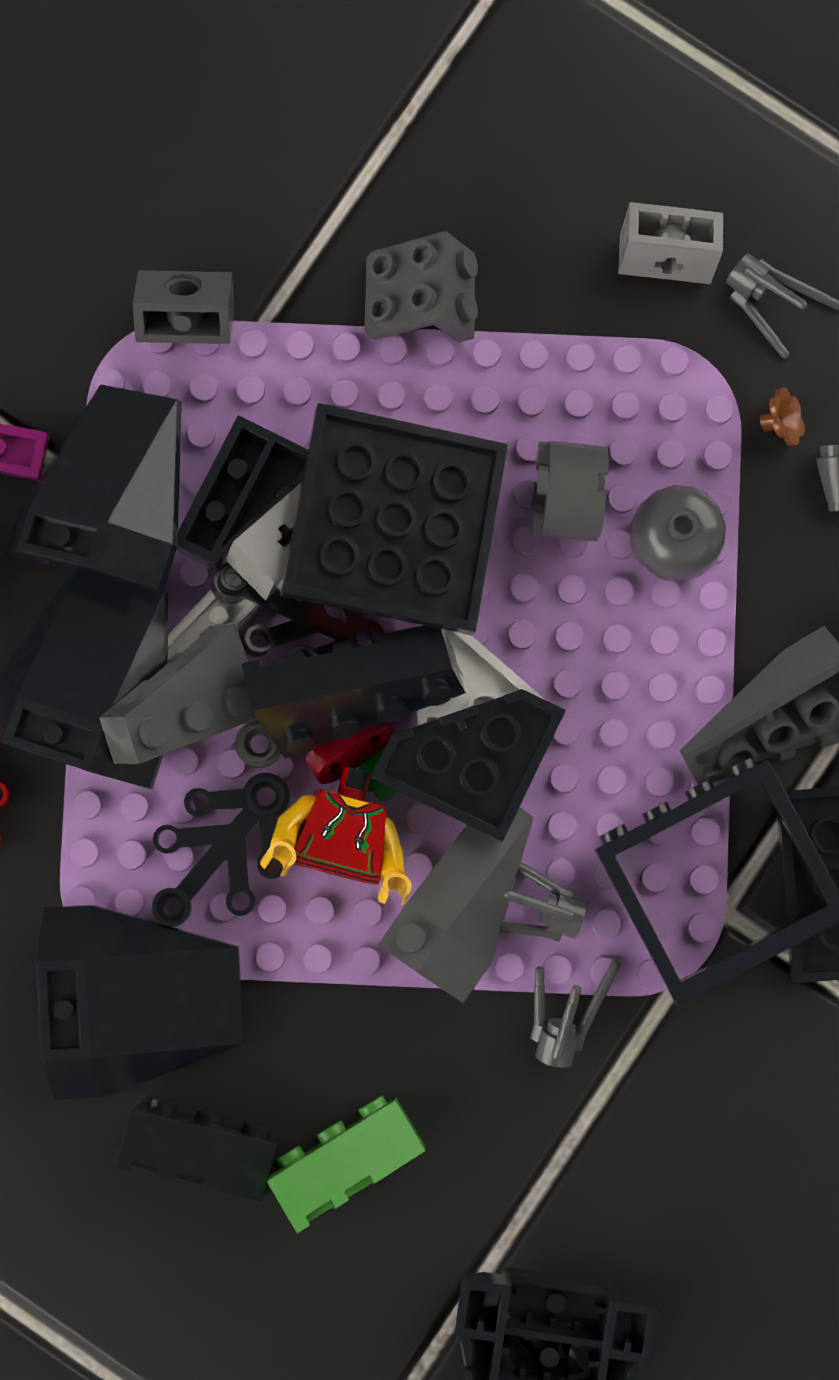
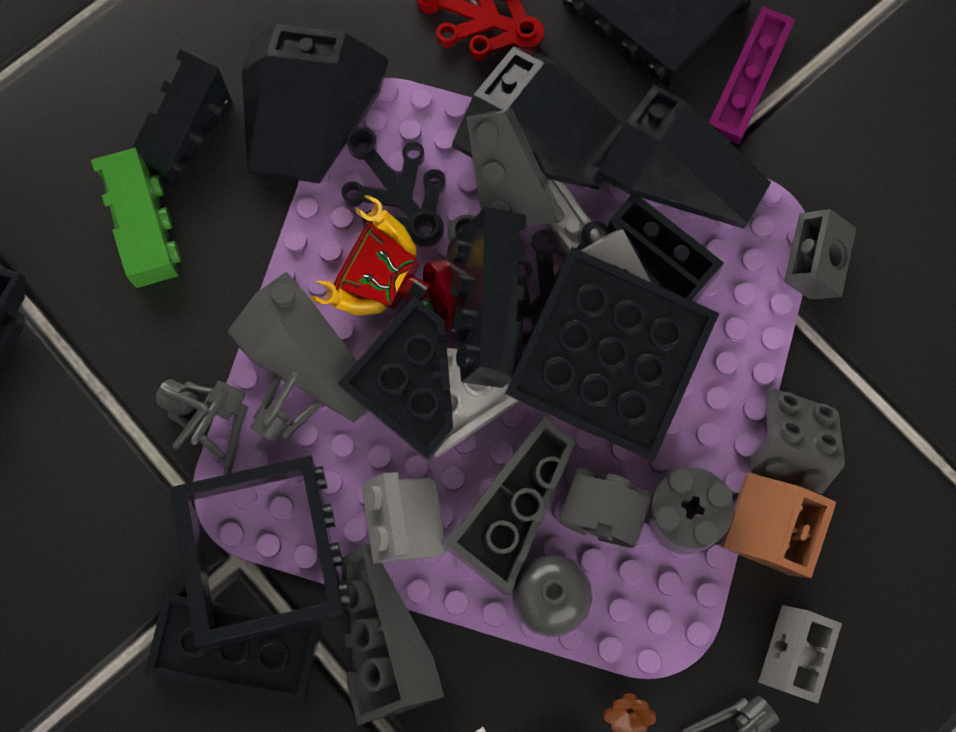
camera: 105 degrees right, 10 degrees down
(532, 293) = (779, 525): none -> nougat slope
(548, 369) = (710, 500): none -> dark grey brick
(553, 976) = (222, 402): none -> dark grey plant
(592, 600) = (505, 518): none -> dark grey wedge
(641, 722) = (403, 518): none -> light grey bracket

